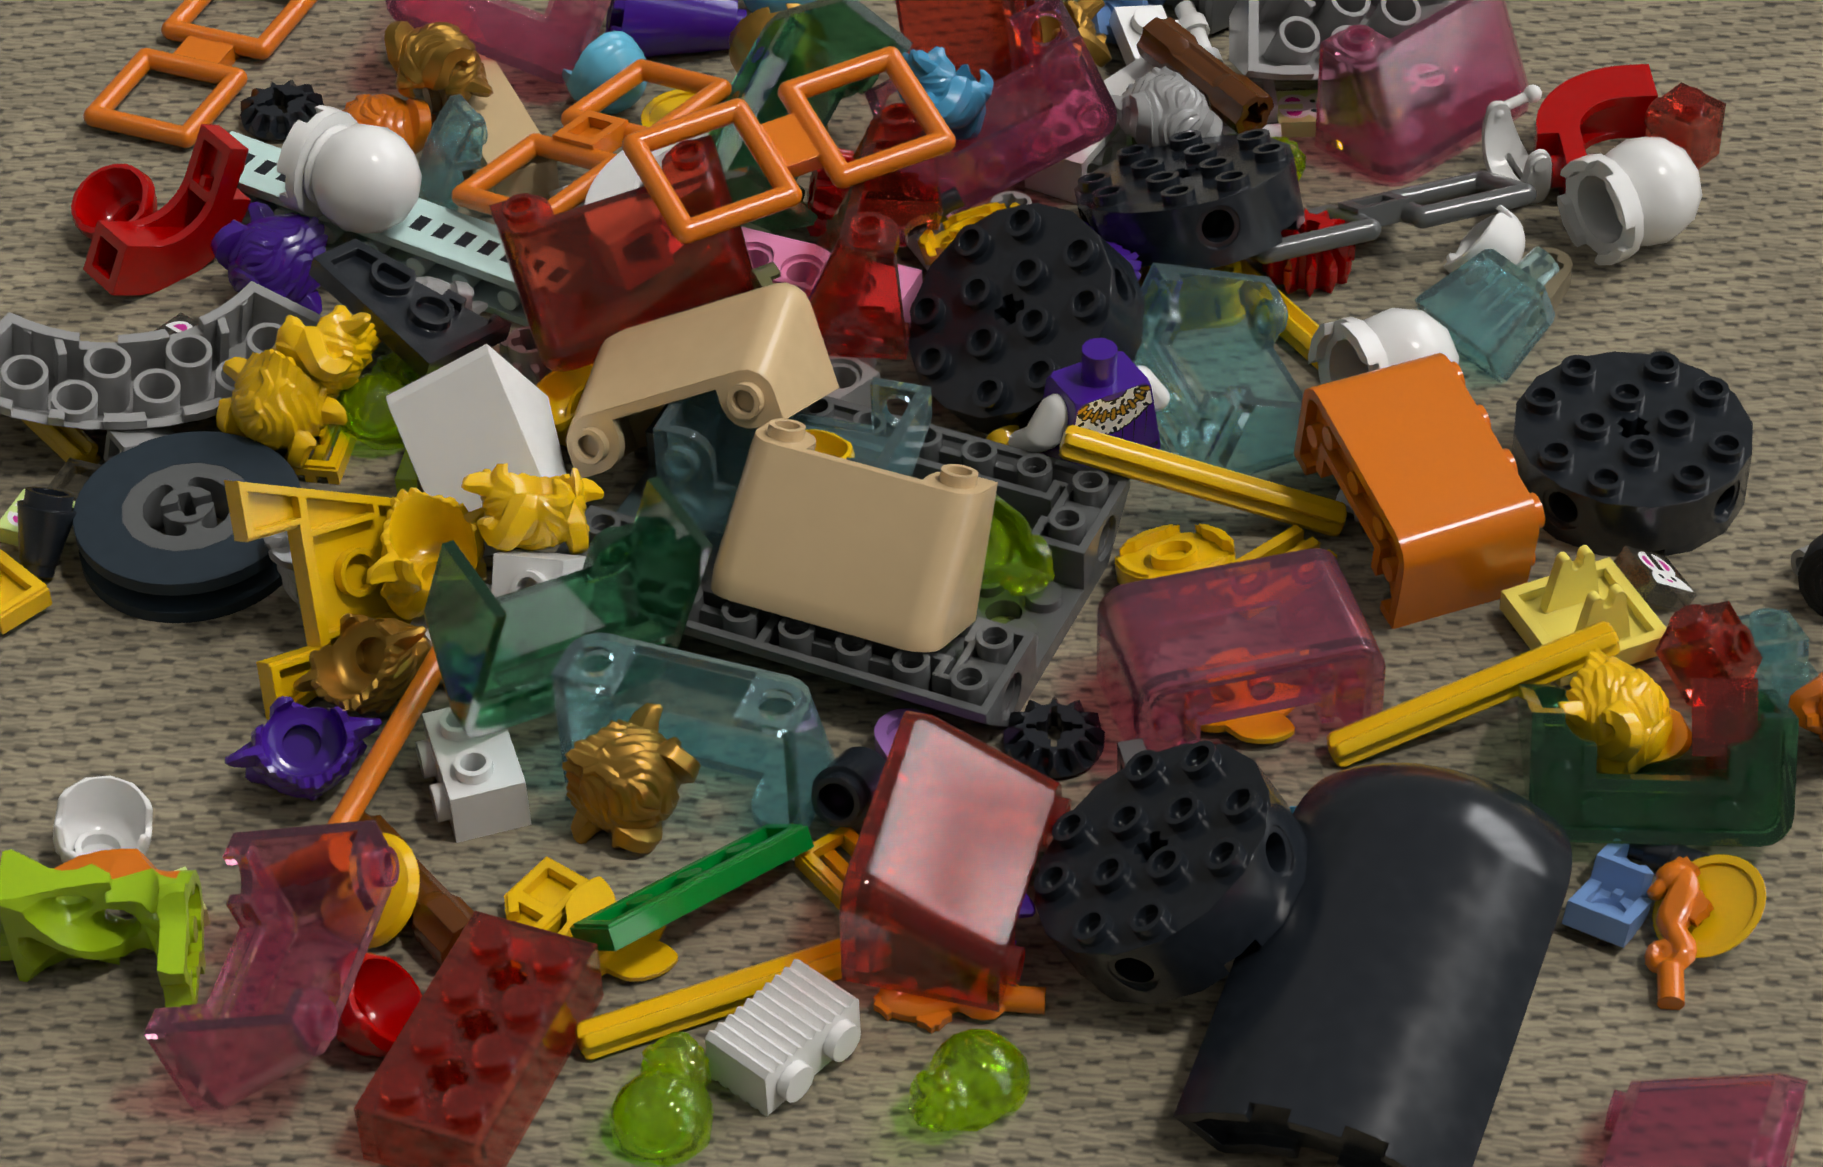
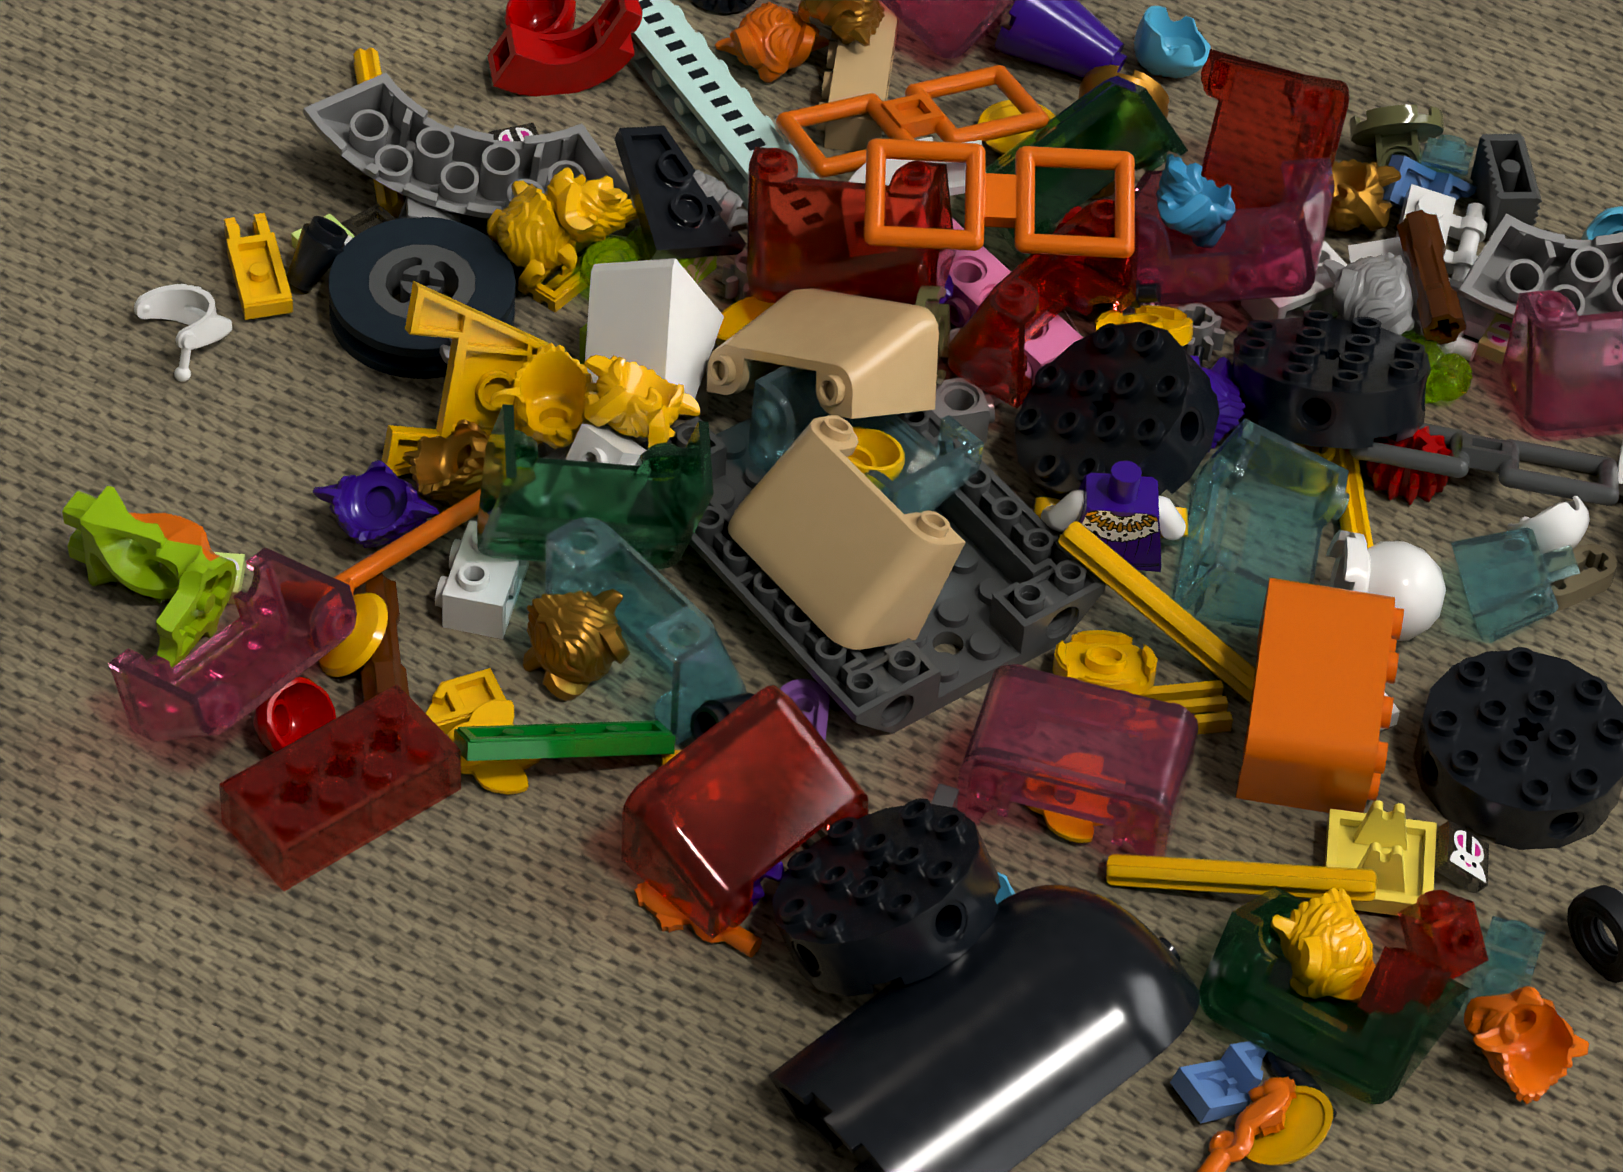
camera: 25 degrees right, 5 degrees up
(101, 816) = (207, 494): white hair -> none
(273, 253) = (618, 103): dark purple hair -> none
(349, 172) = (702, 66): white tile -> none
(451, 148) = (808, 78): clear light blue slope -> none
(602, 61) = (975, 53): medium azure hair -> none
(666, 1108) = (440, 890): clear neon green hair -> none
(695, 1003) = (518, 828): yellow axle -> none
(783, 1037) = (550, 881): white brick -> none
(970, 1083) = (654, 979): clear neon green hair -> none
(1015, 555) = (969, 596): clear neon green hair -> none
(1076, 750) = (920, 773): black gear -> none

